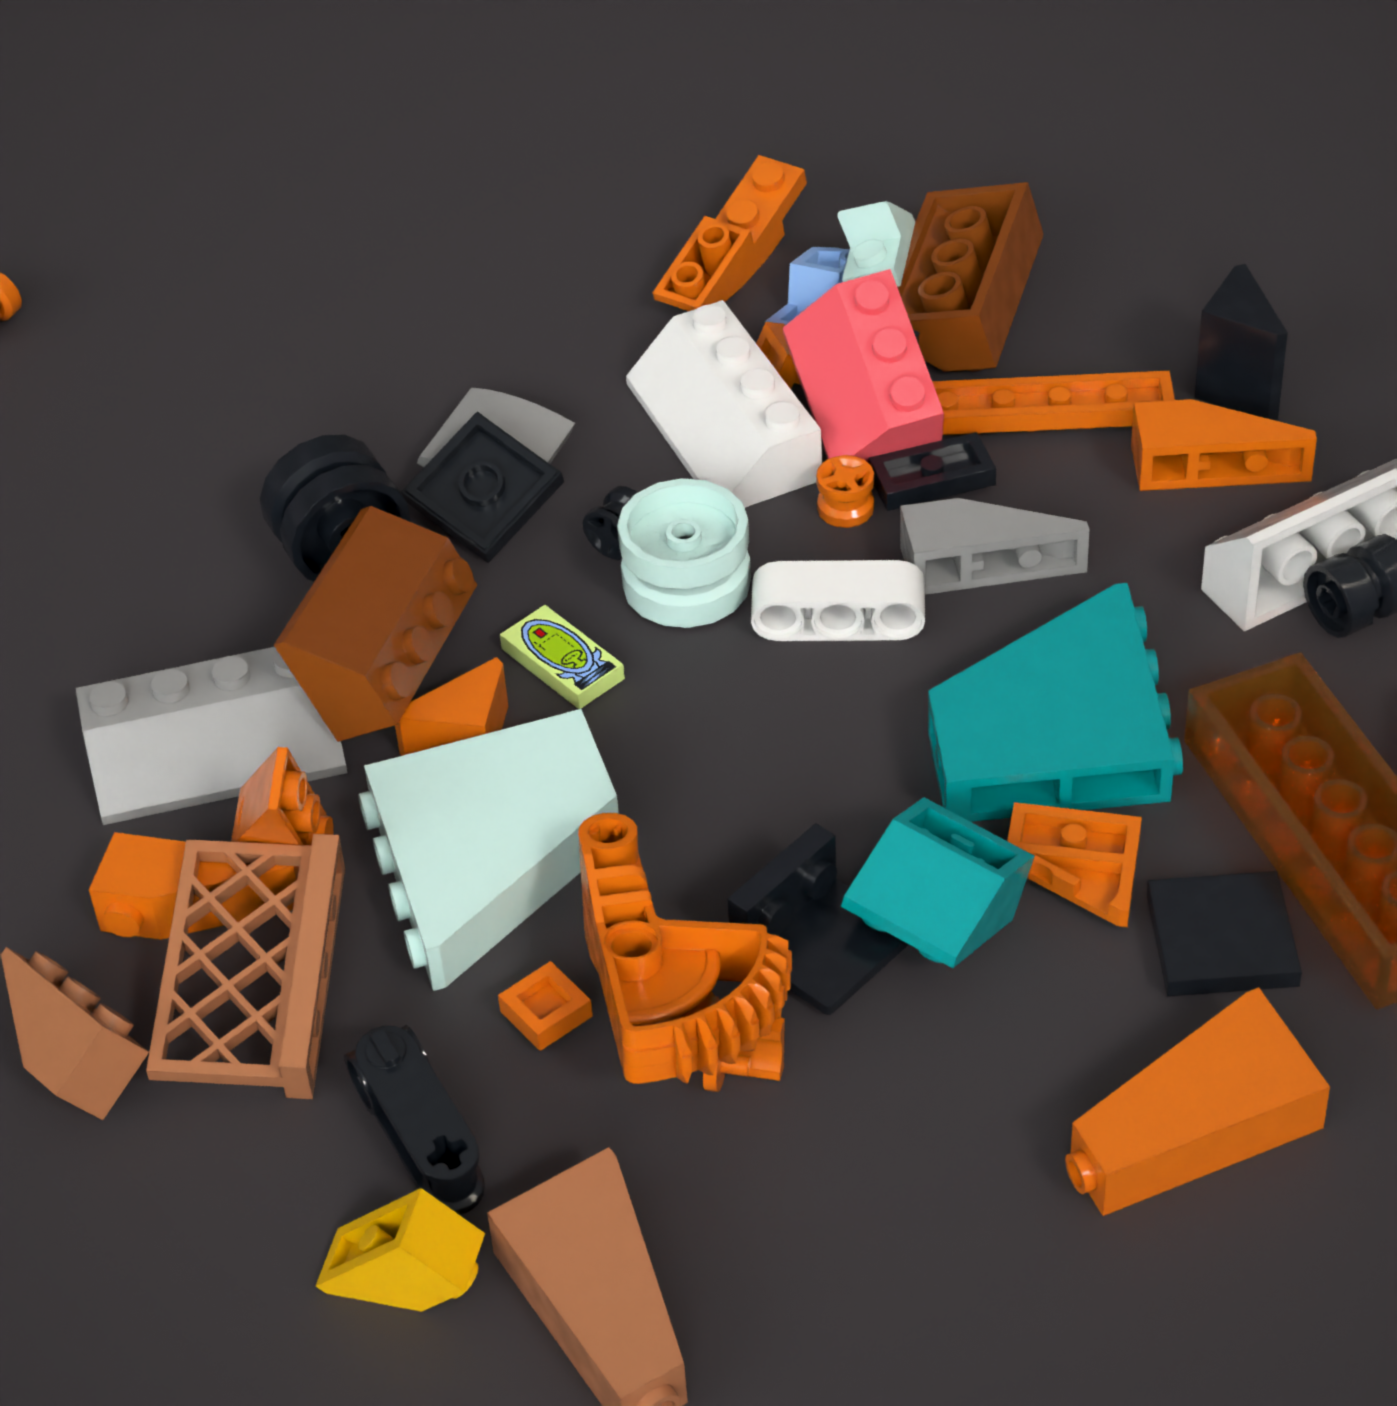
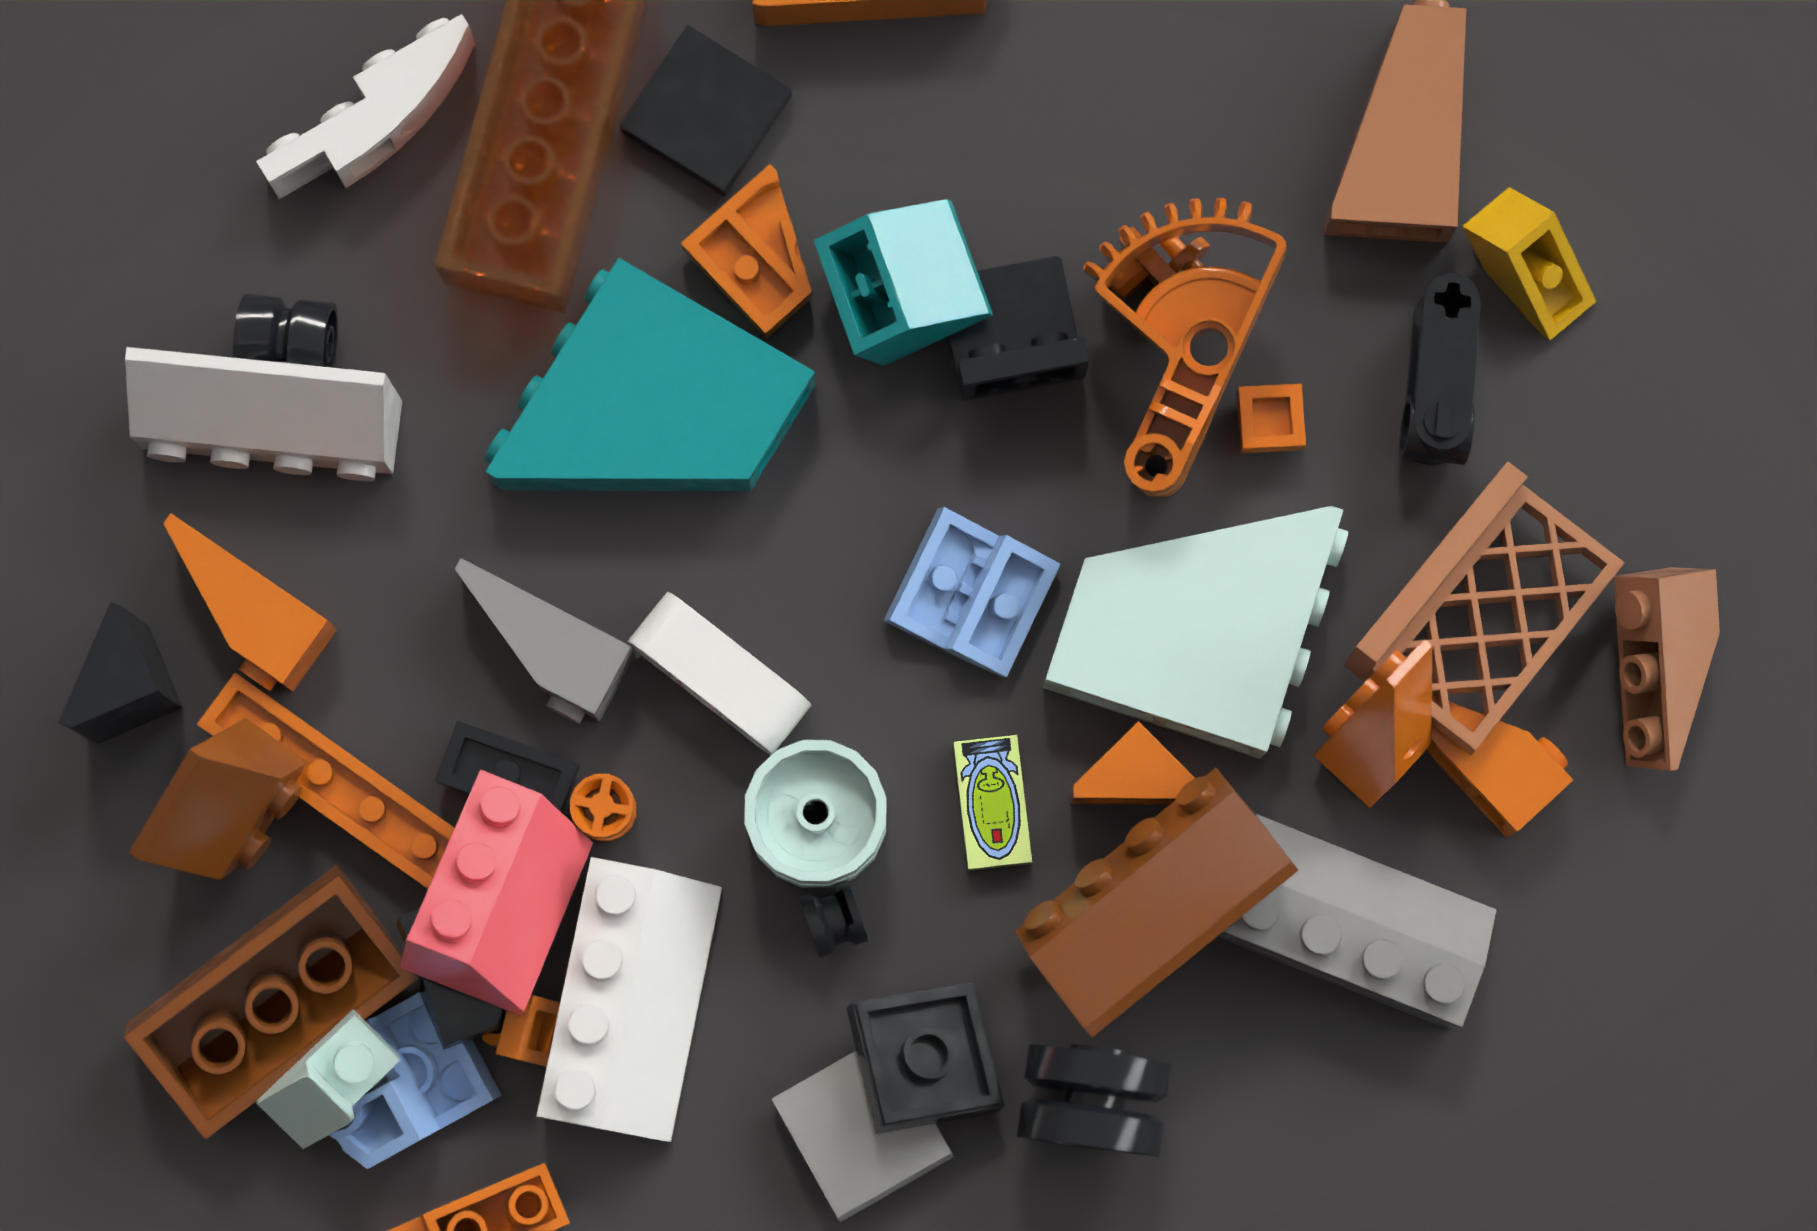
camera: 150 degrees left, 35 degrees up
(693, 763) = (972, 592): none -> light blue slope
(1100, 322) = (222, 803): none -> dark orange slope

